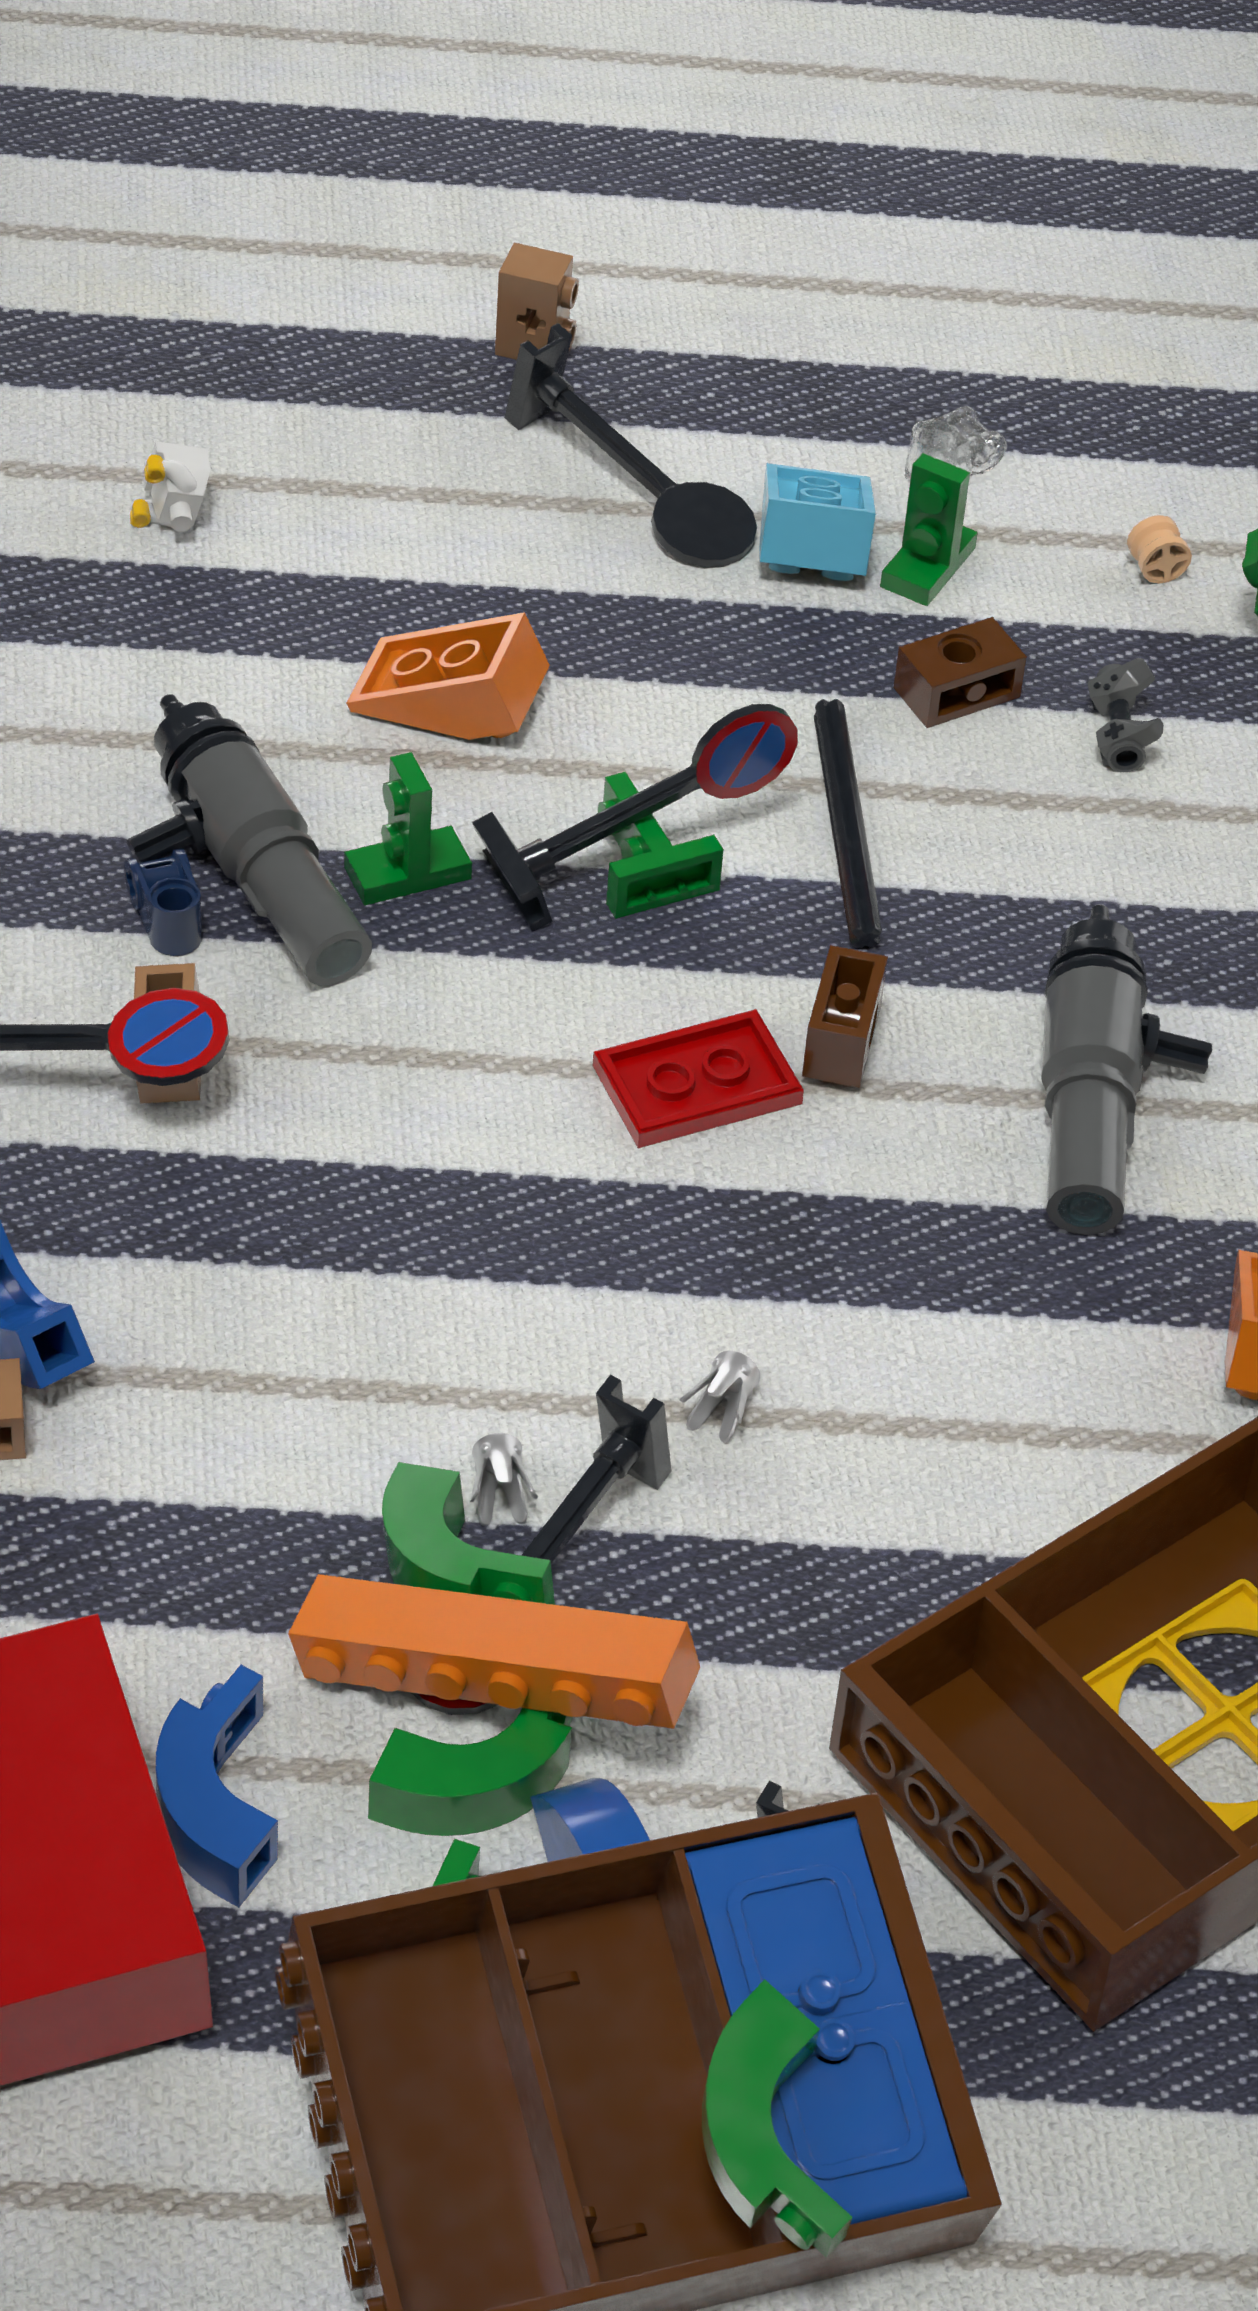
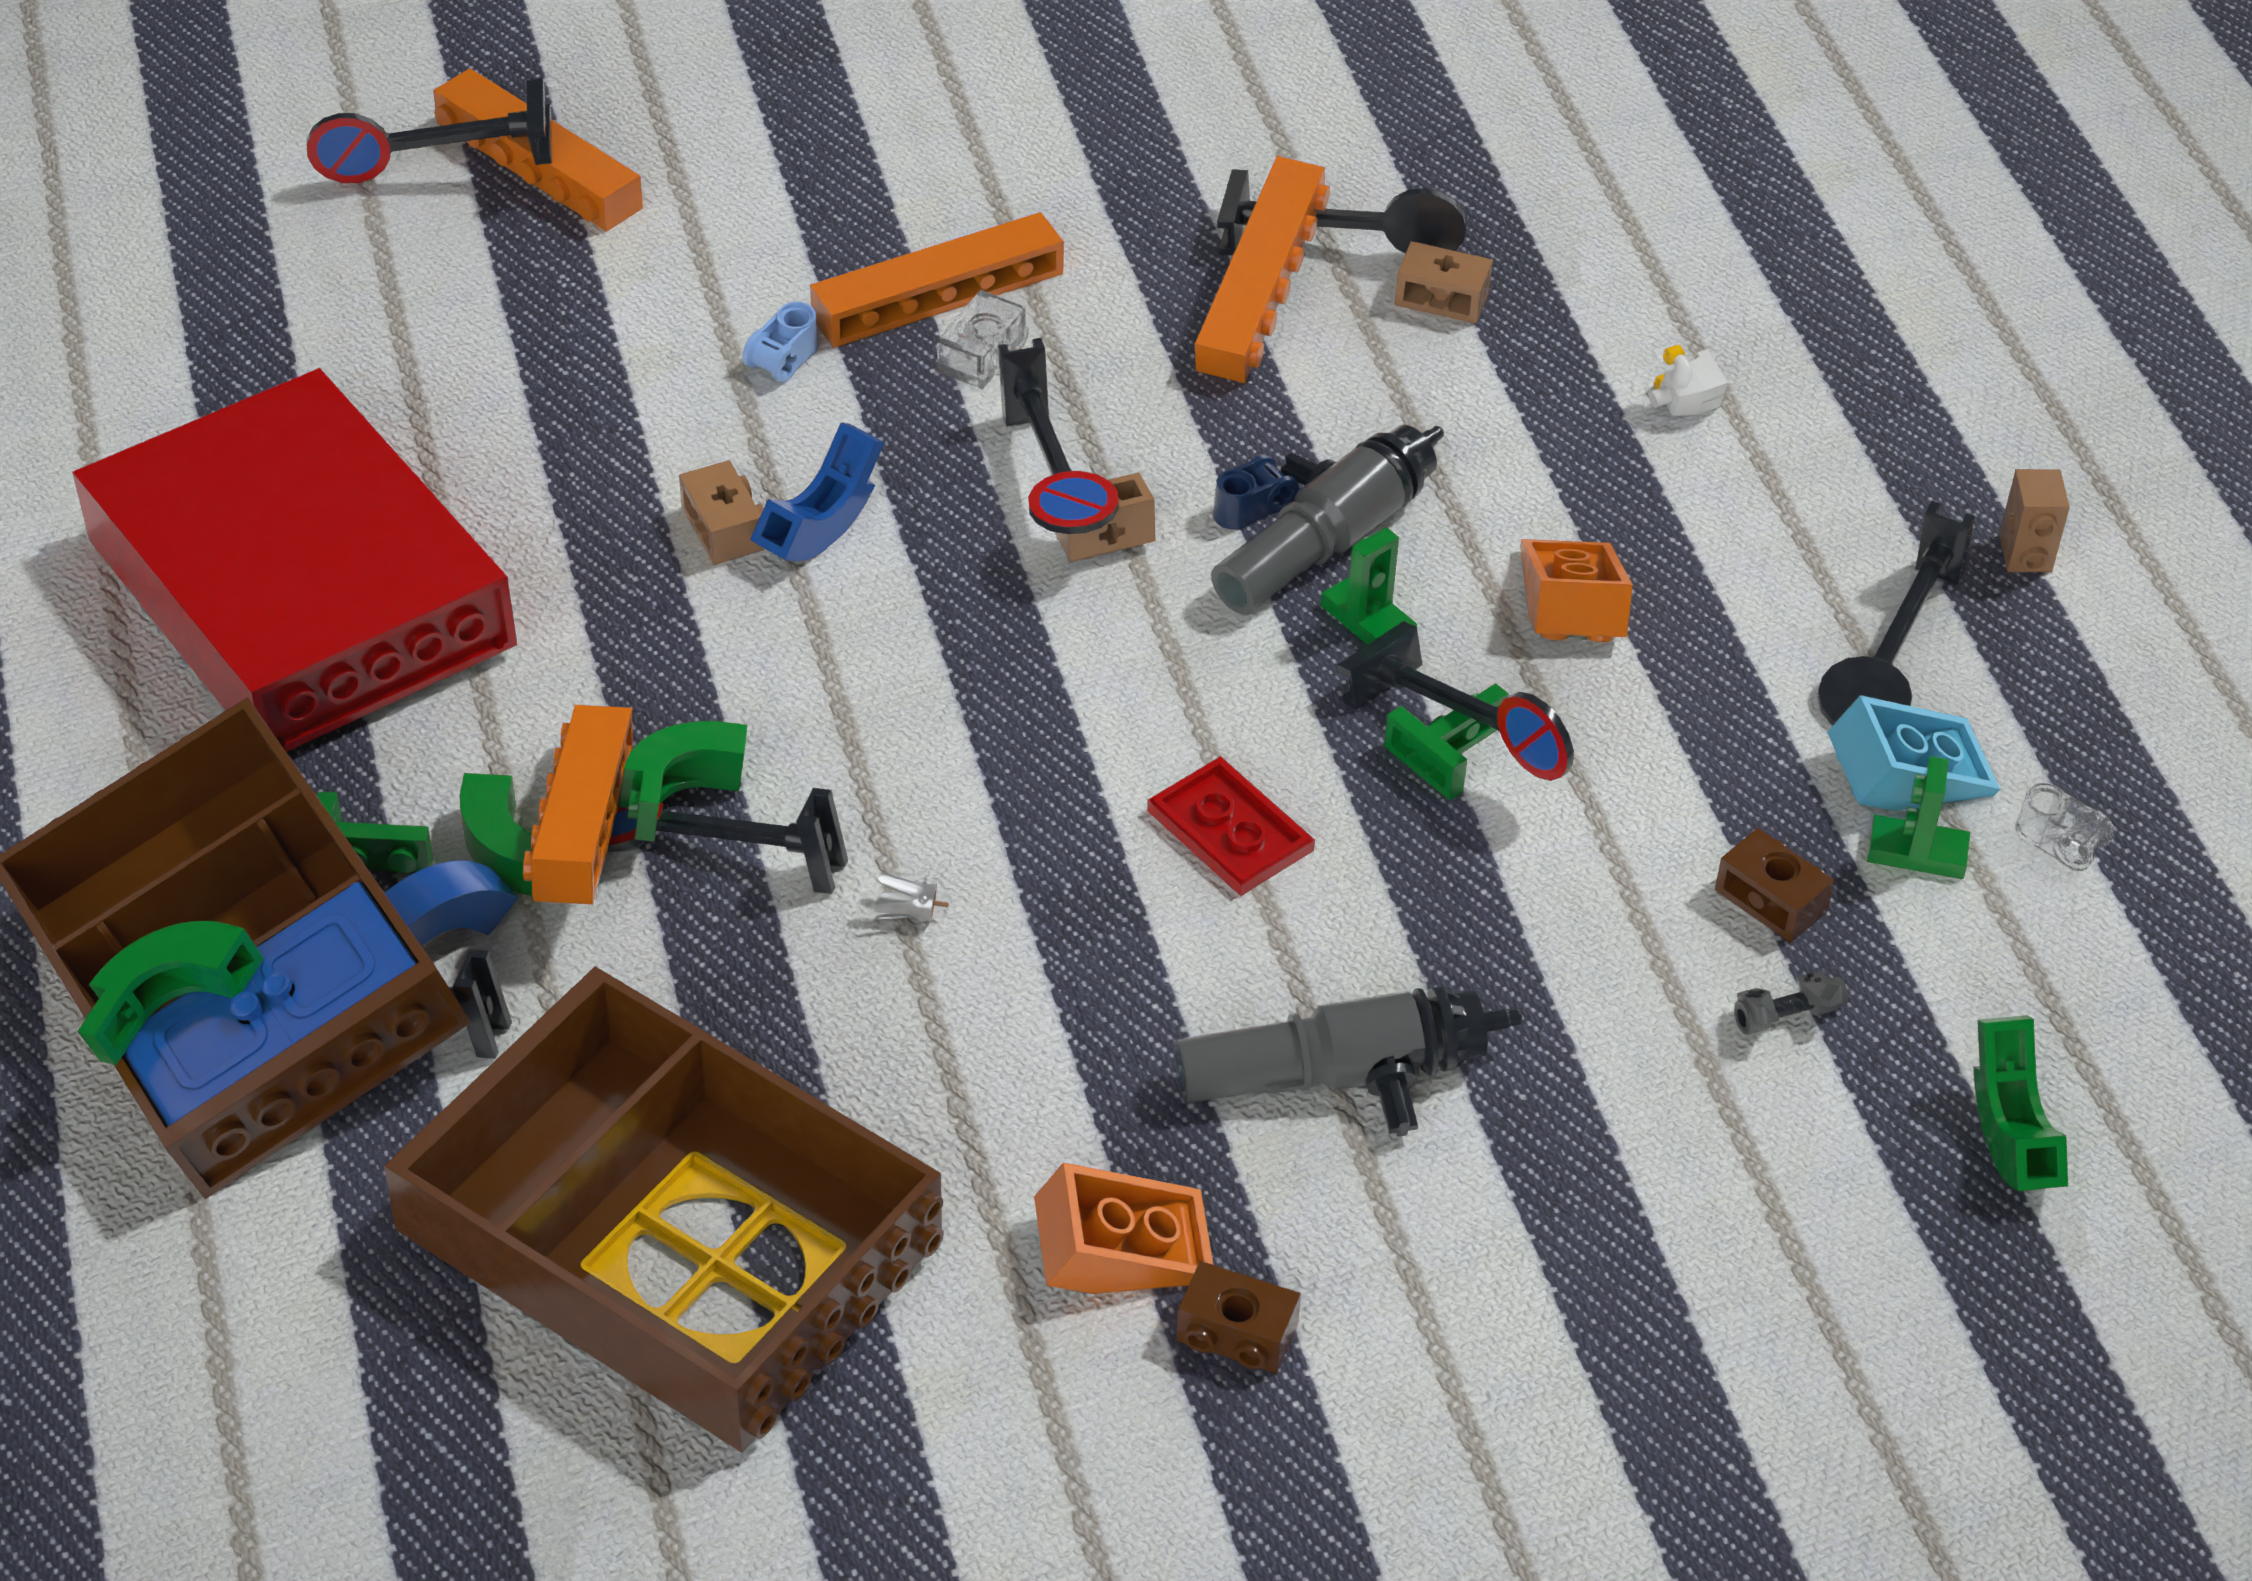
camera: 75 degrees right, 0 degrees up
(212, 1831) = (448, 699): blue arch -> none
(500, 1462) = (787, 794): flat silver piece -> none
(844, 1016) = (1315, 881): reddish brown brick -> none
(847, 824) = (1560, 854): black axle -> none
(1159, 549) = (2022, 989): light nougat wheel -> none

